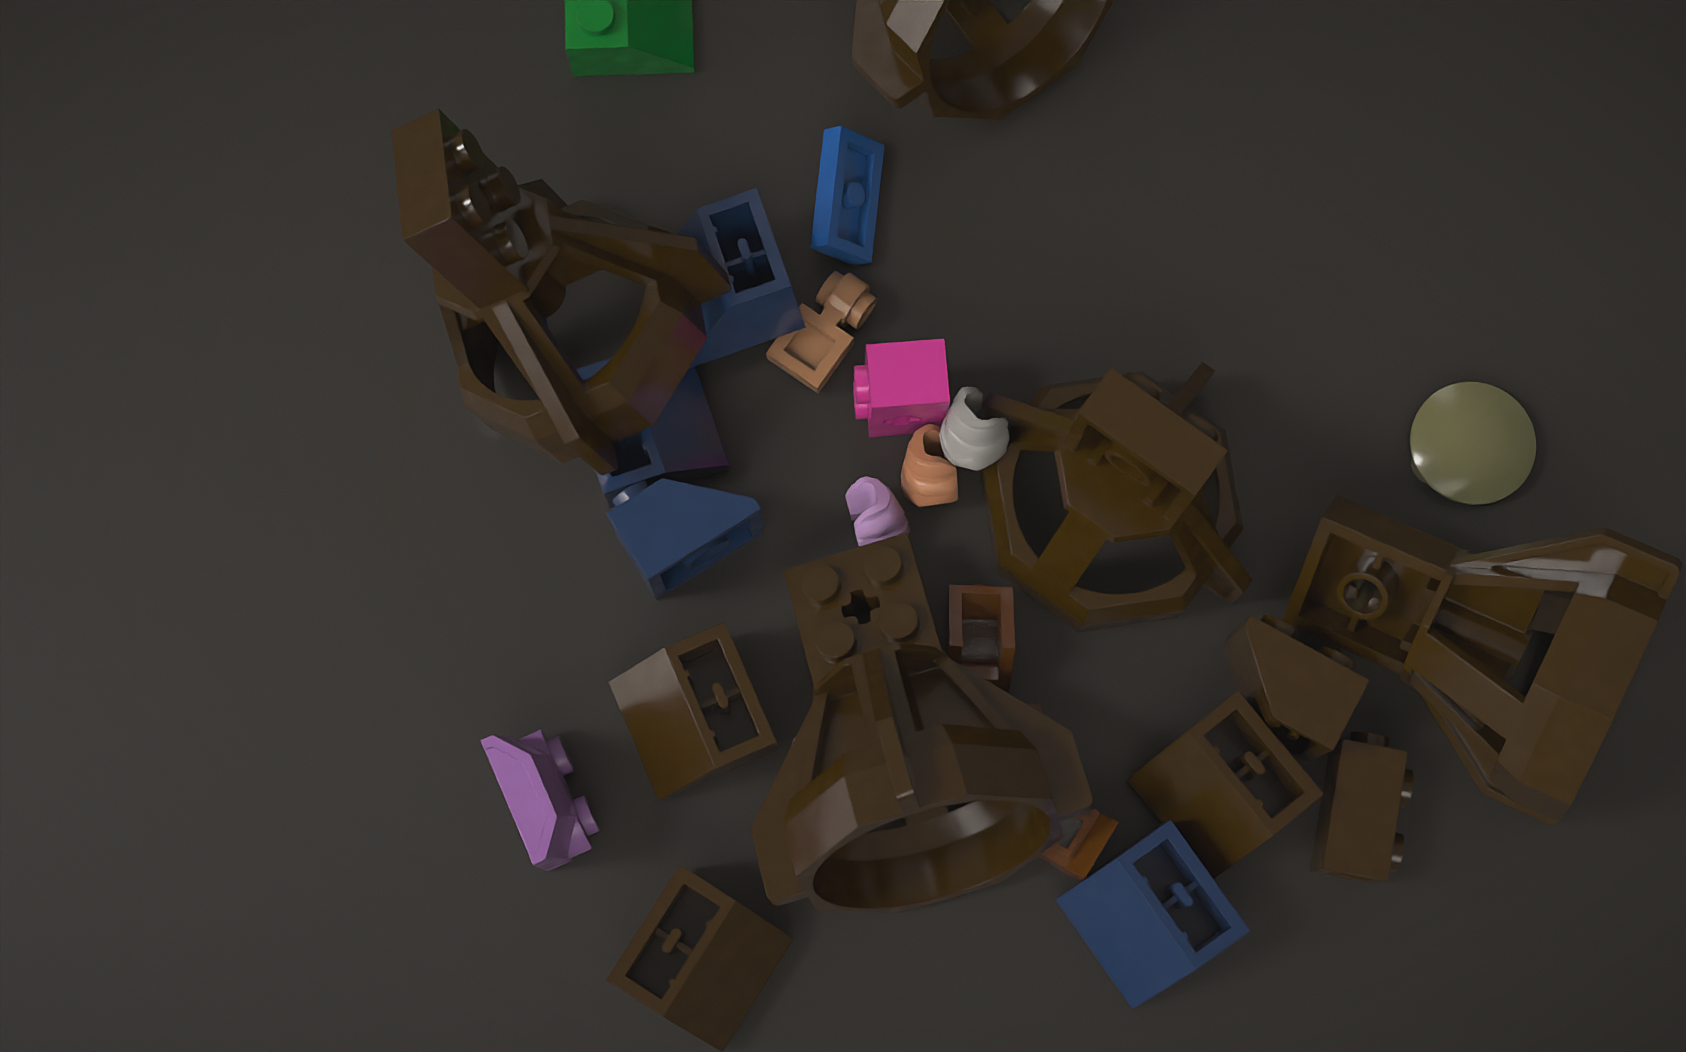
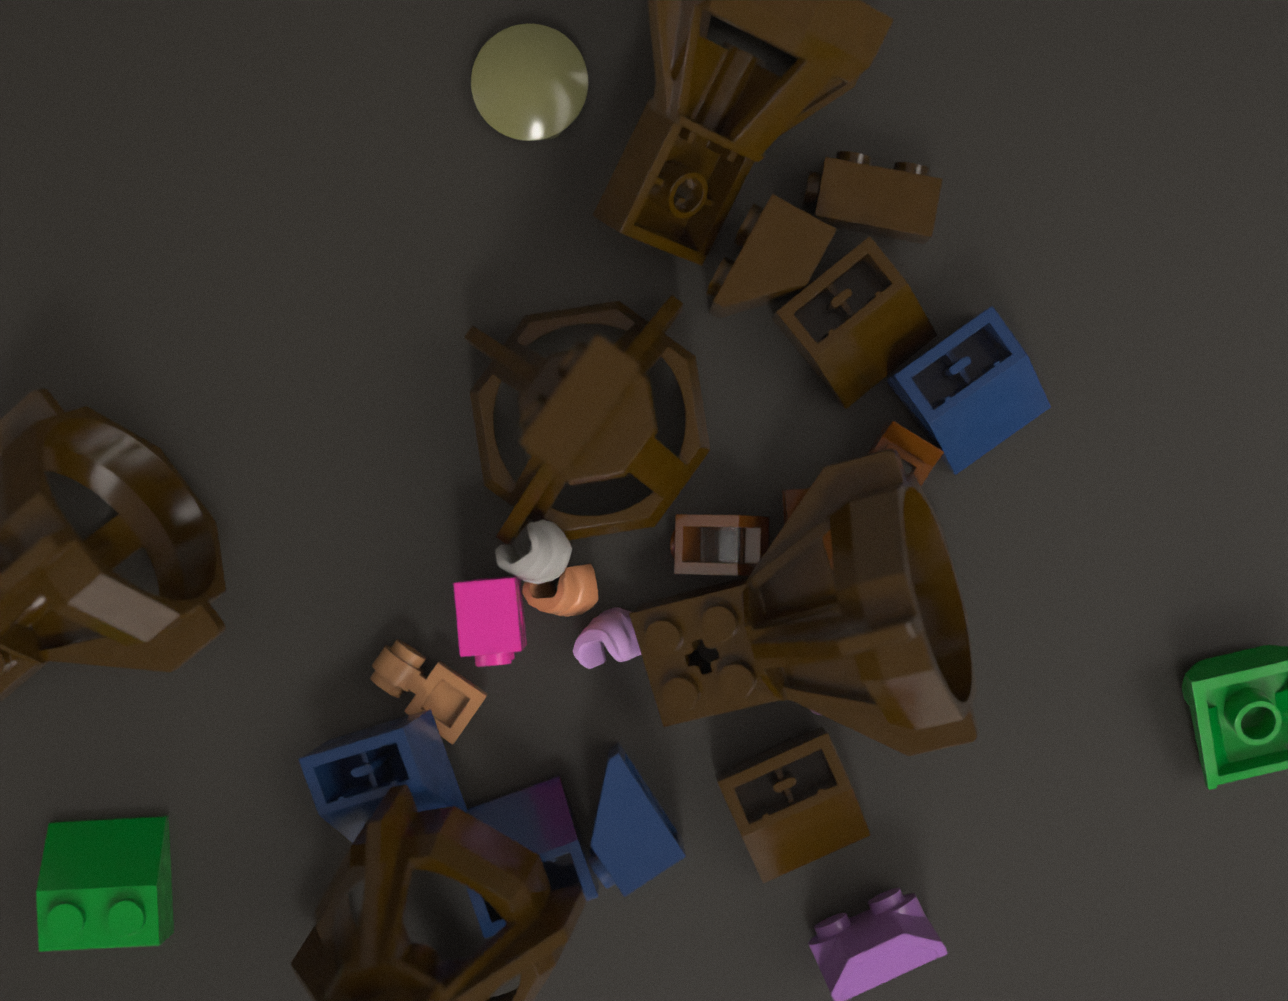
camera: 90 degrees left, 10 degrees up
(700, 959) = (1014, 796): dark brown slope -> none
(847, 196) = (296, 669): blue plate -> none

